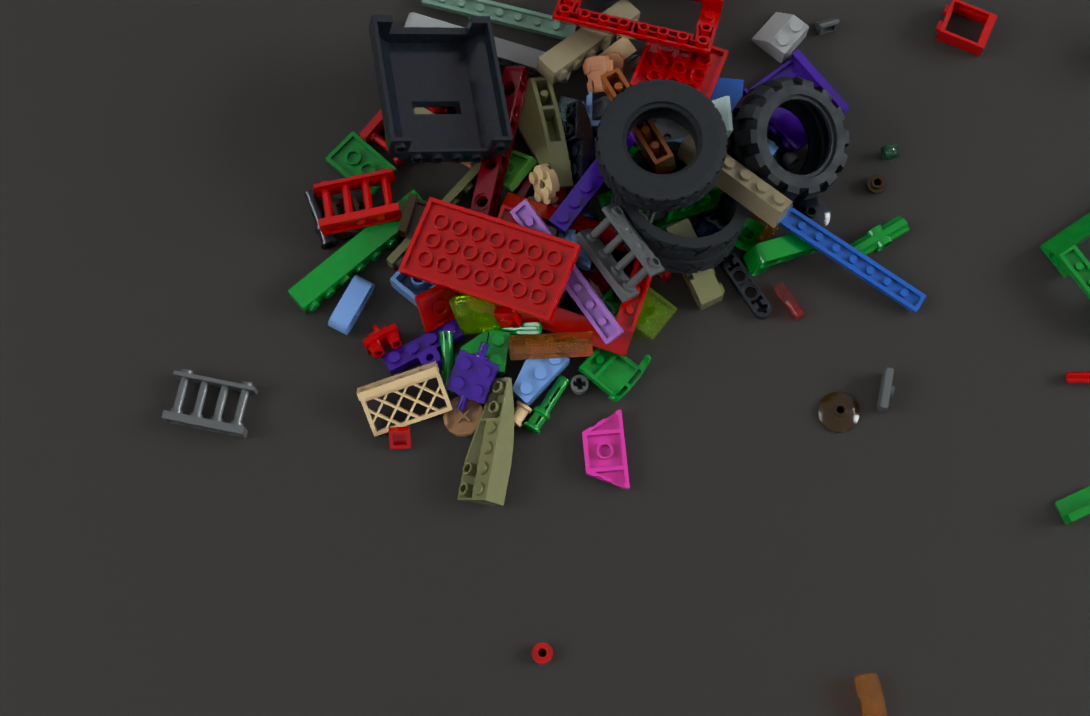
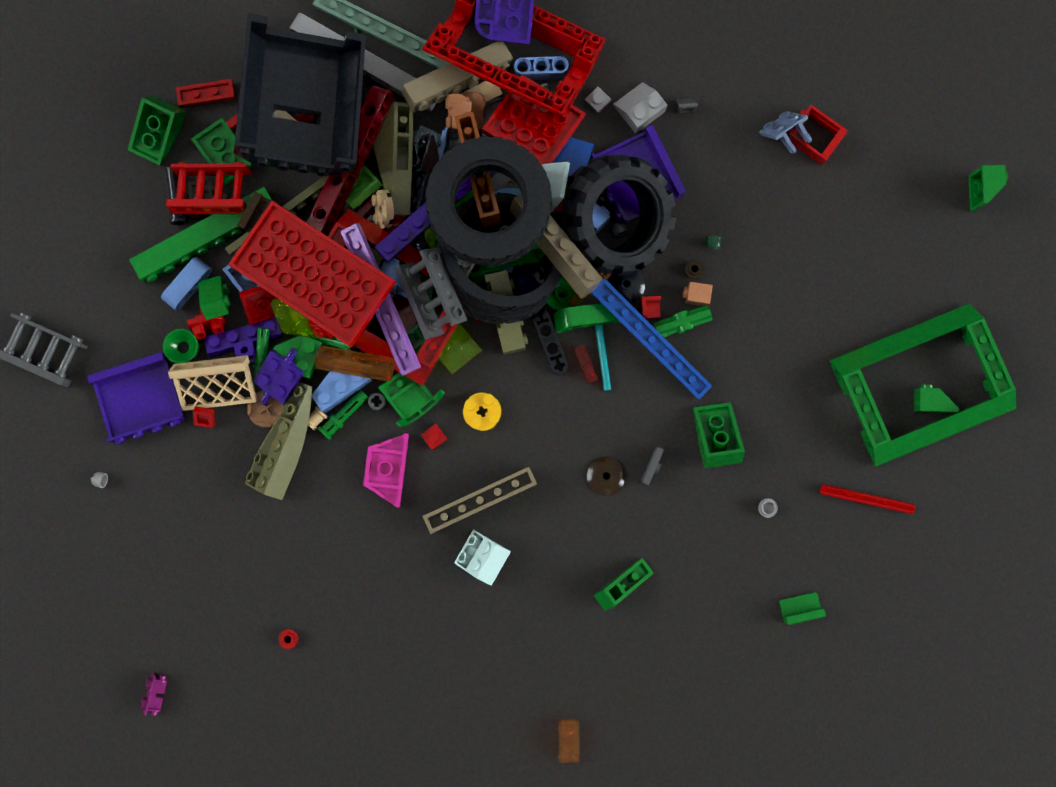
camera: 10 degrees right, 10 degrees up
(285, 157) = (155, 129): none -> green slope
(301, 527) = (99, 479): none -> light grey hinge
(324, 433) = (137, 398): none -> dark purple panel
(329, 110) = (205, 93): none -> red plate
(359, 359) = (172, 342): none -> green piece
(386, 310) = (214, 297): none -> green brick
(597, 204) = (430, 237): none -> clear neon green gear
(648, 408) = (434, 436): none -> red plate
(676, 11) = (549, 63): none -> medium blue beam
(696, 361) = (477, 421): none -> yellow plate
(714, 461) = (479, 500): none -> dark tan brick
(730, 521) = (482, 557): none -> light aqua slope
(735, 38) = (598, 100): none -> light grey plate
(805, 292) = (603, 357): none -> teal bar
(841, 228) = (650, 307): none -> red panel
(886, 519) = (623, 584): none -> green slope
(887, 206) = (697, 294): none -> nougat brick
(928, 26) = (780, 126): none -> sand blue plate
(946, 344) = (718, 435): none -> green slope
(1016, 408) = (767, 508): none -> light grey plate

